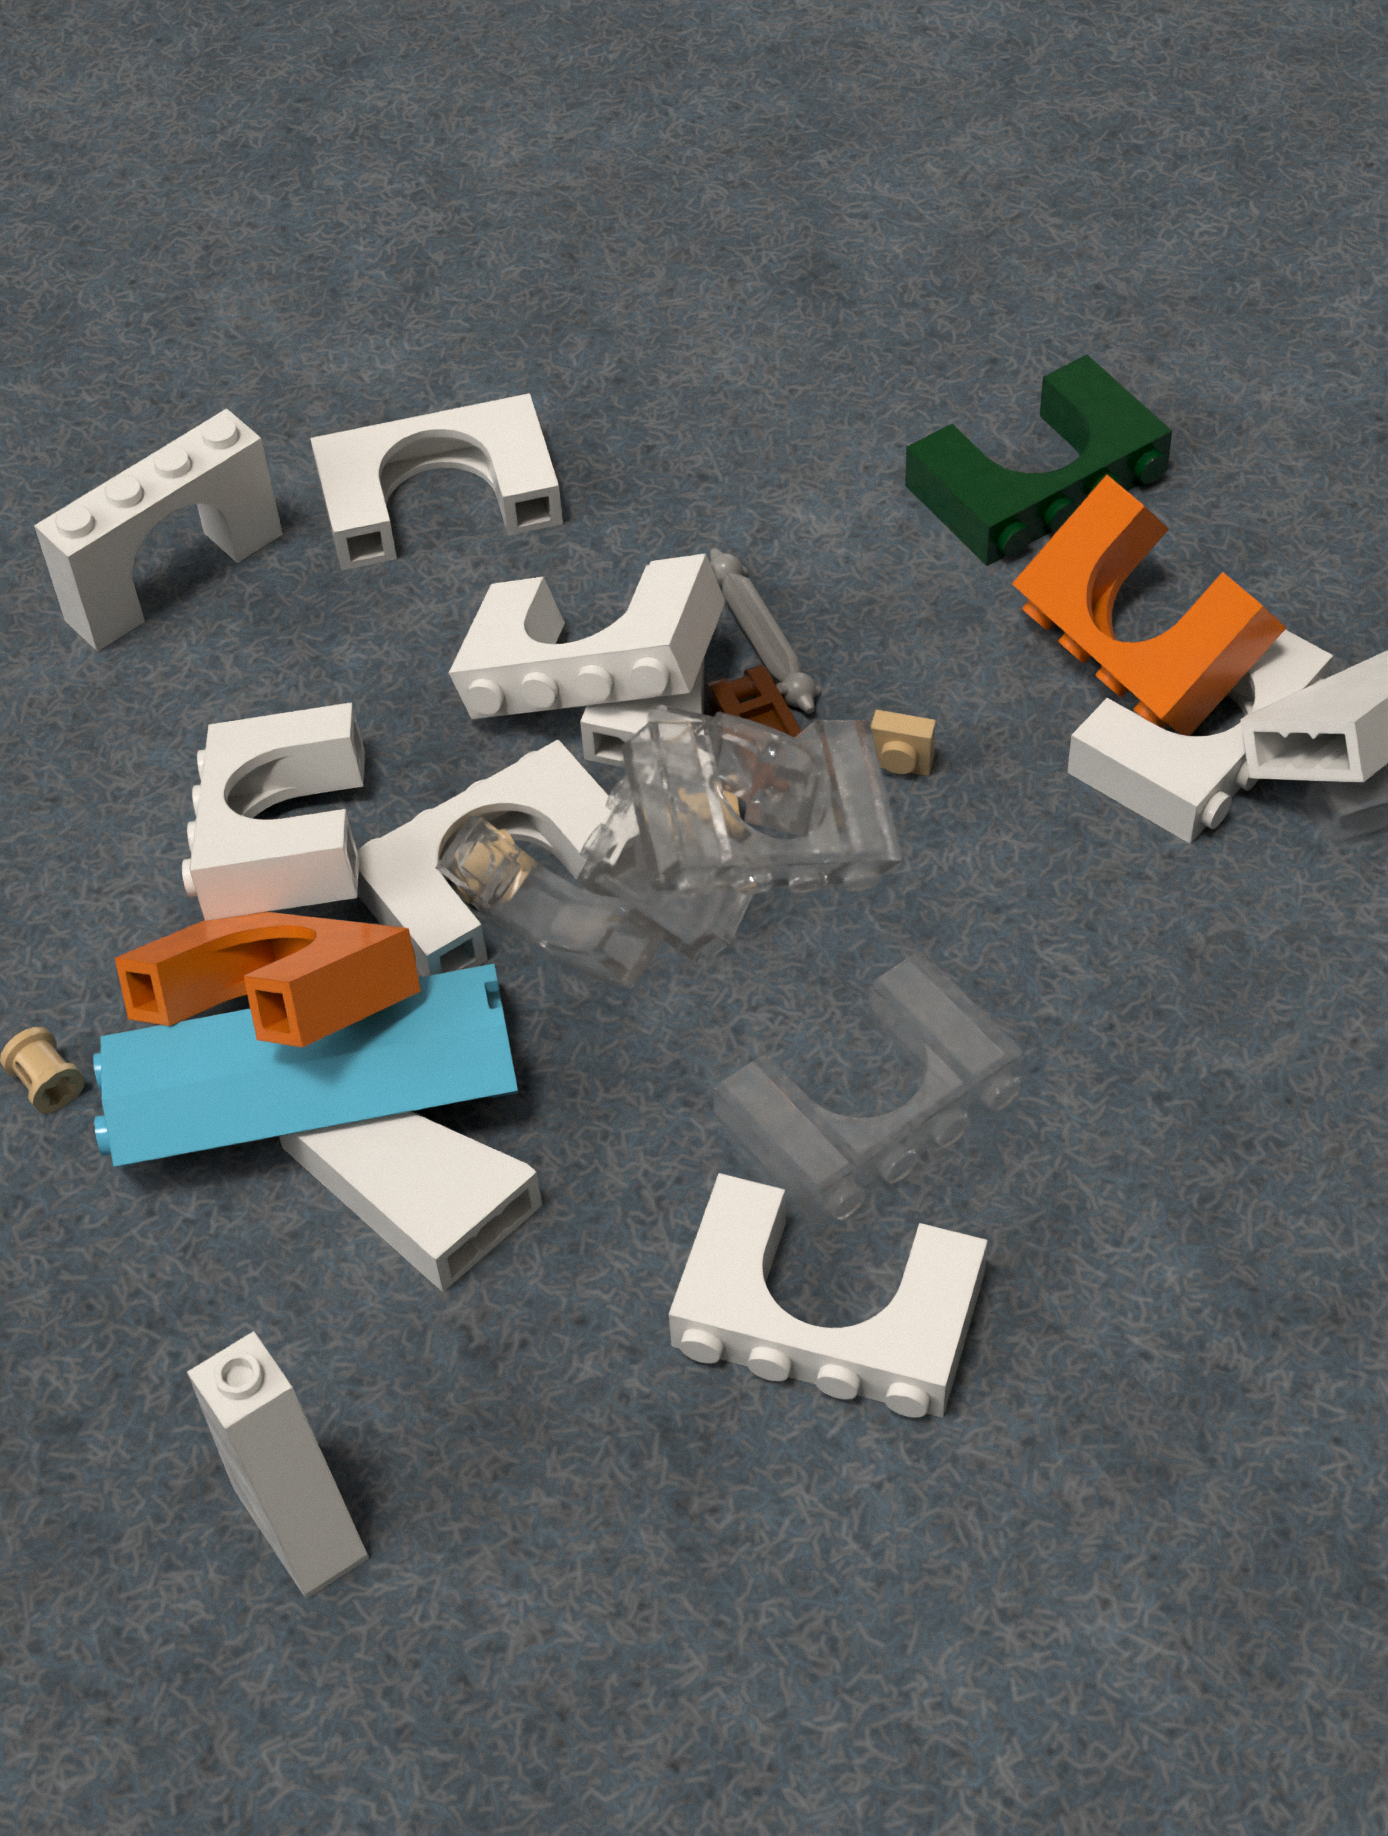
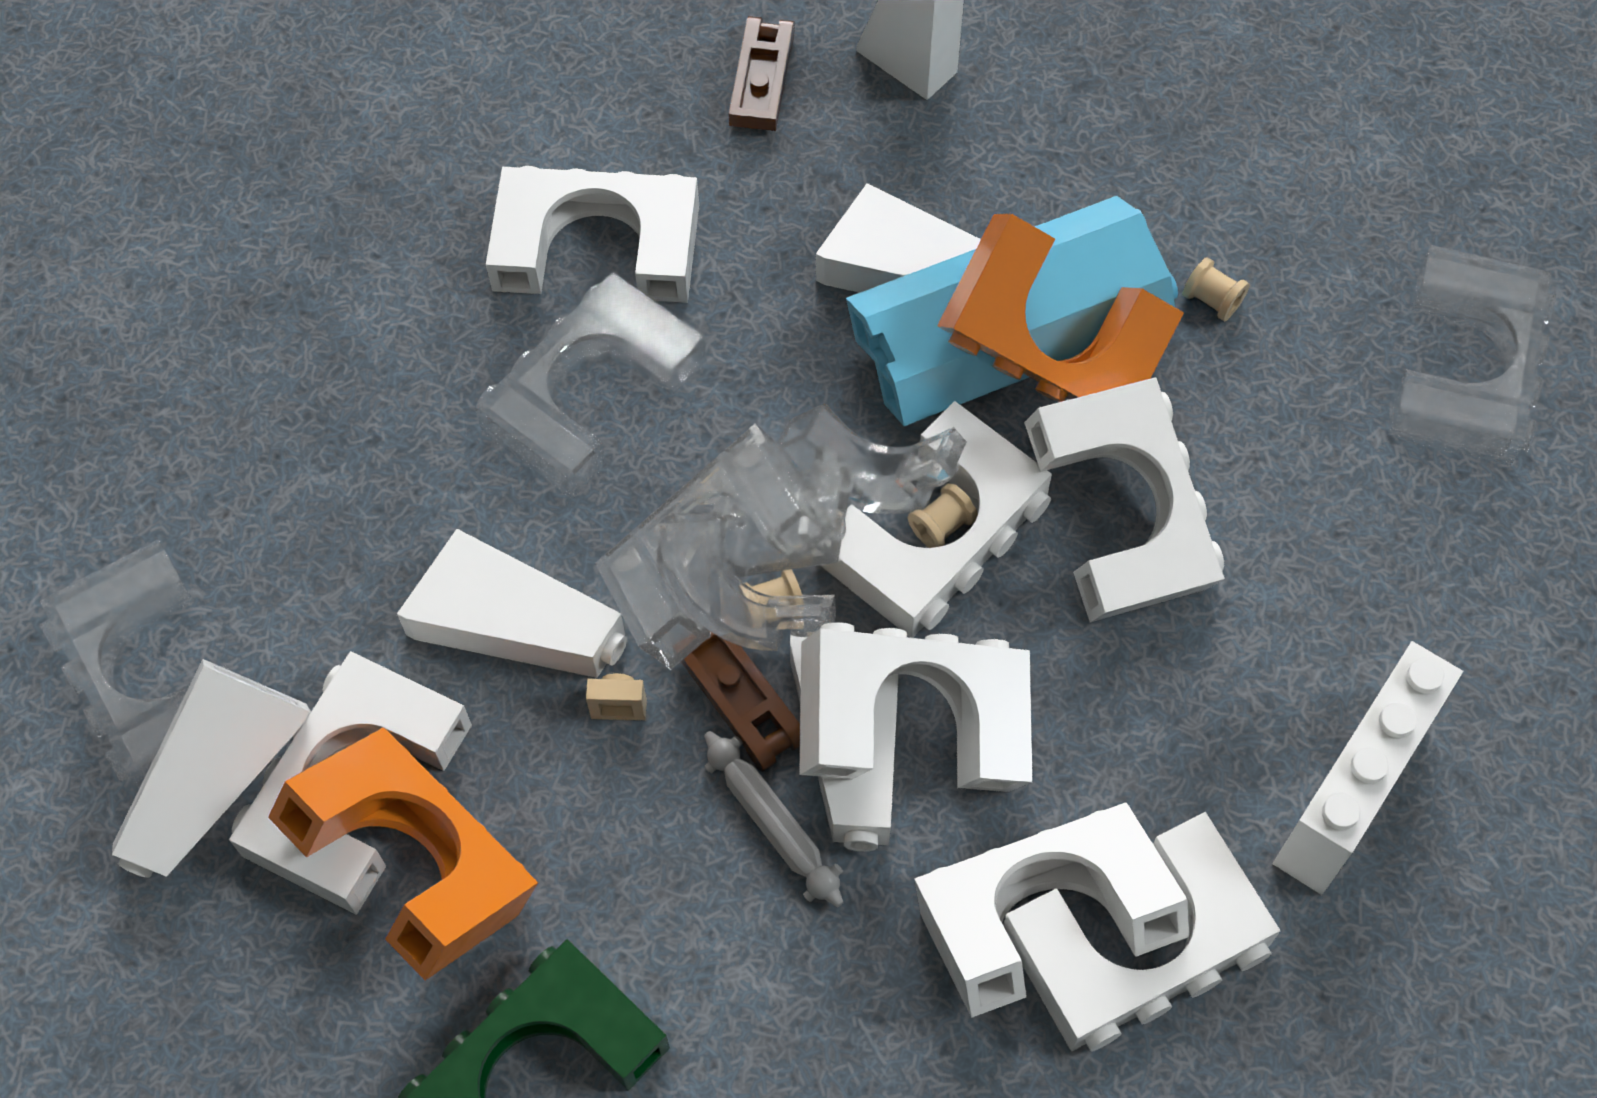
camera: 165 degrees right, 10 degrees up
(449, 533) = (1096, 855): none -> white arch
(524, 1523) = (761, 74): none -> plate
(1012, 848) = (510, 611): none -> white slope

